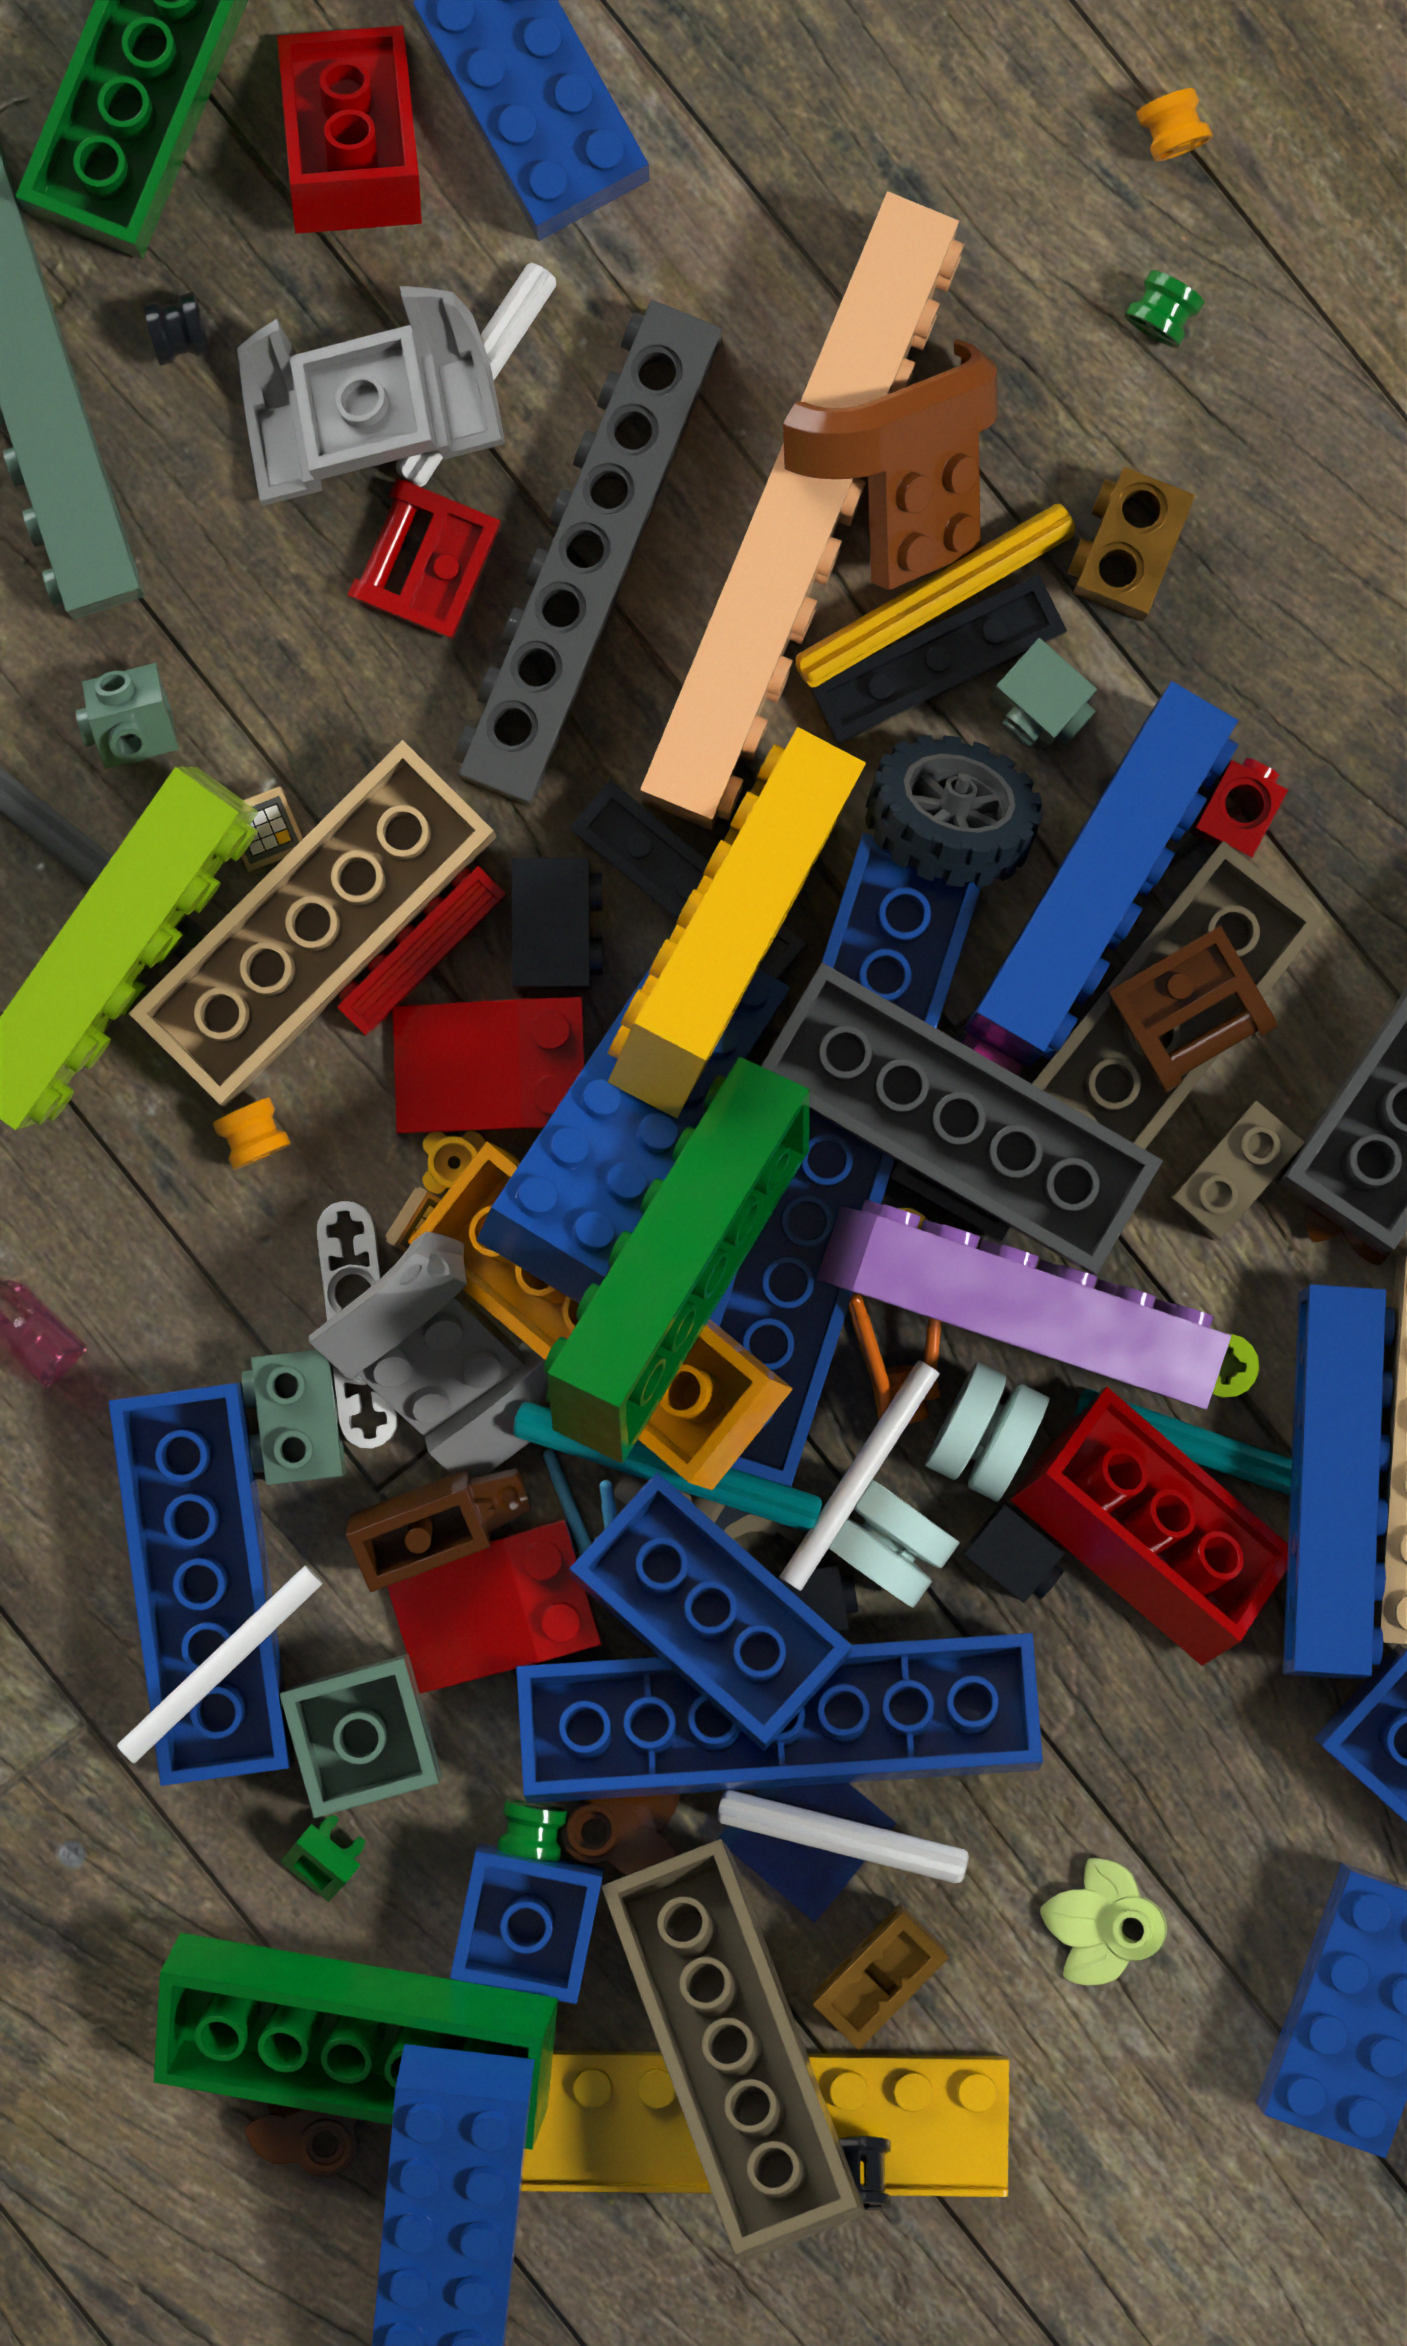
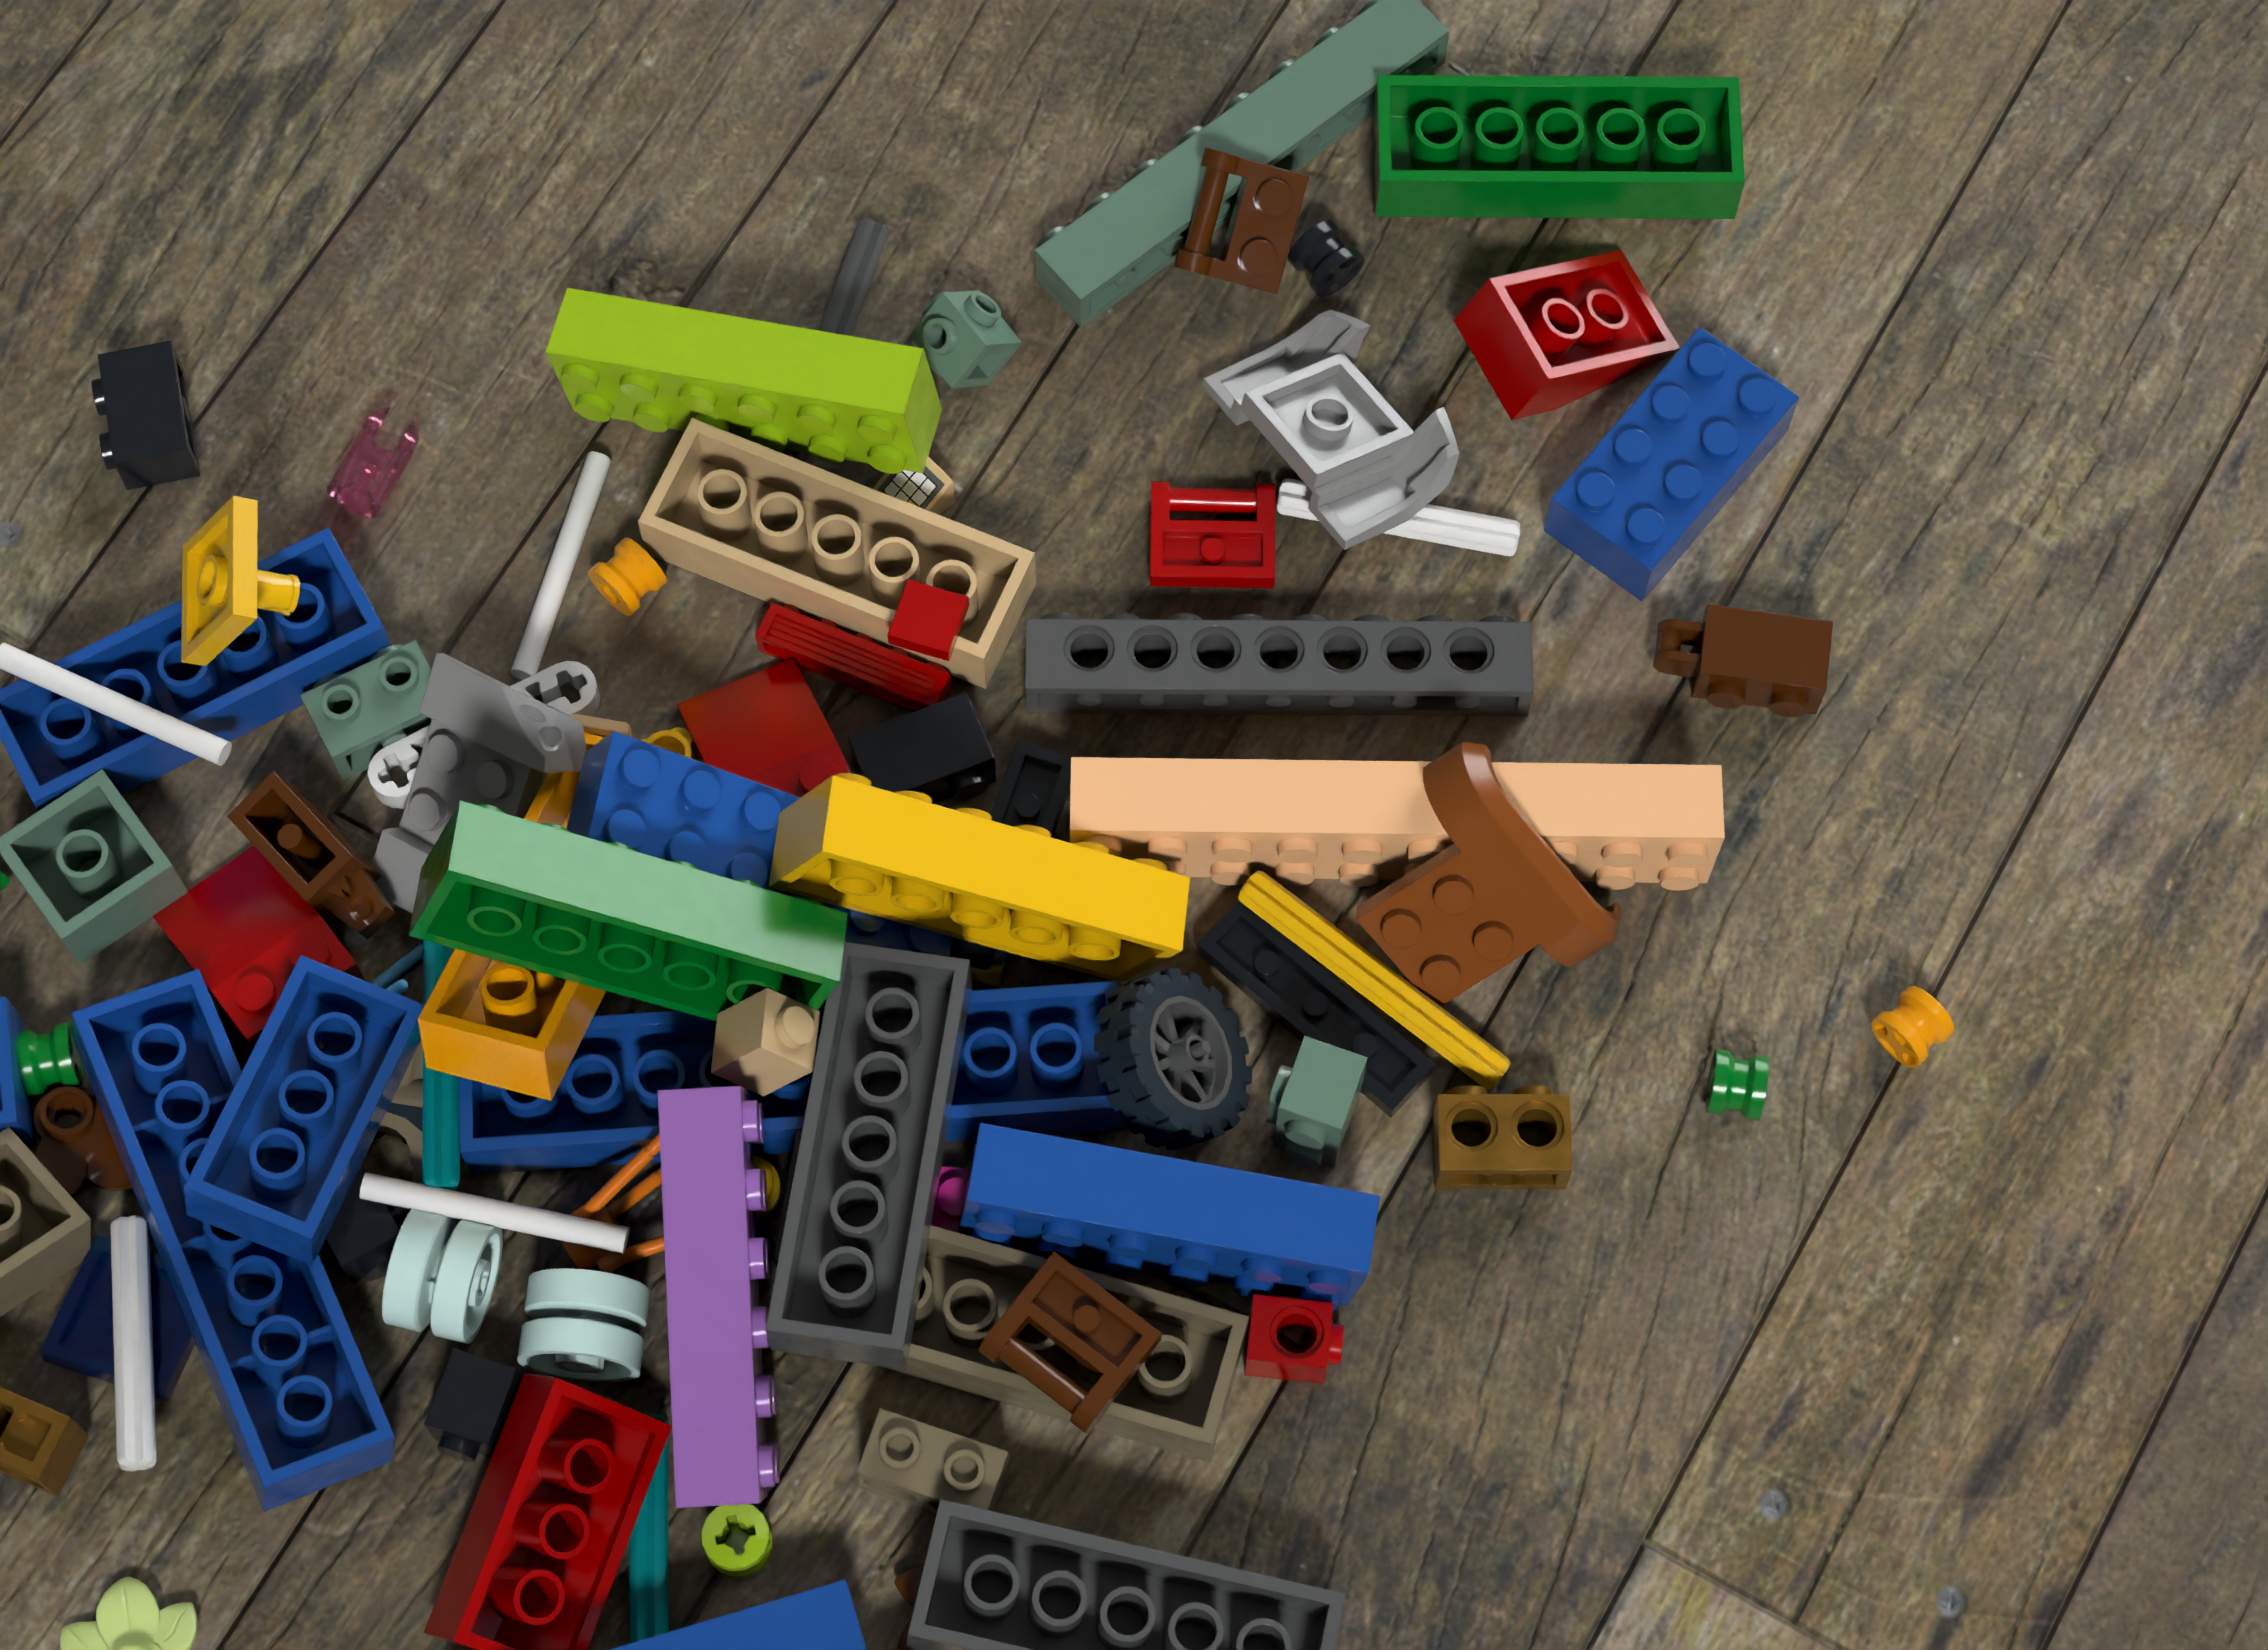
camera: 70 degrees right, 20 degrees down
(125, 383) = (1259, 224): none -> reddish brown plate
(152, 1517) = (224, 584): none -> yellow tile
(207, 1191) = (561, 565): none -> white bar
(438, 867) = (928, 620): none -> red tile
(760, 106) = (1749, 658): none -> reddish brown brick
(819, 1175) = (765, 1042): none -> tan brick

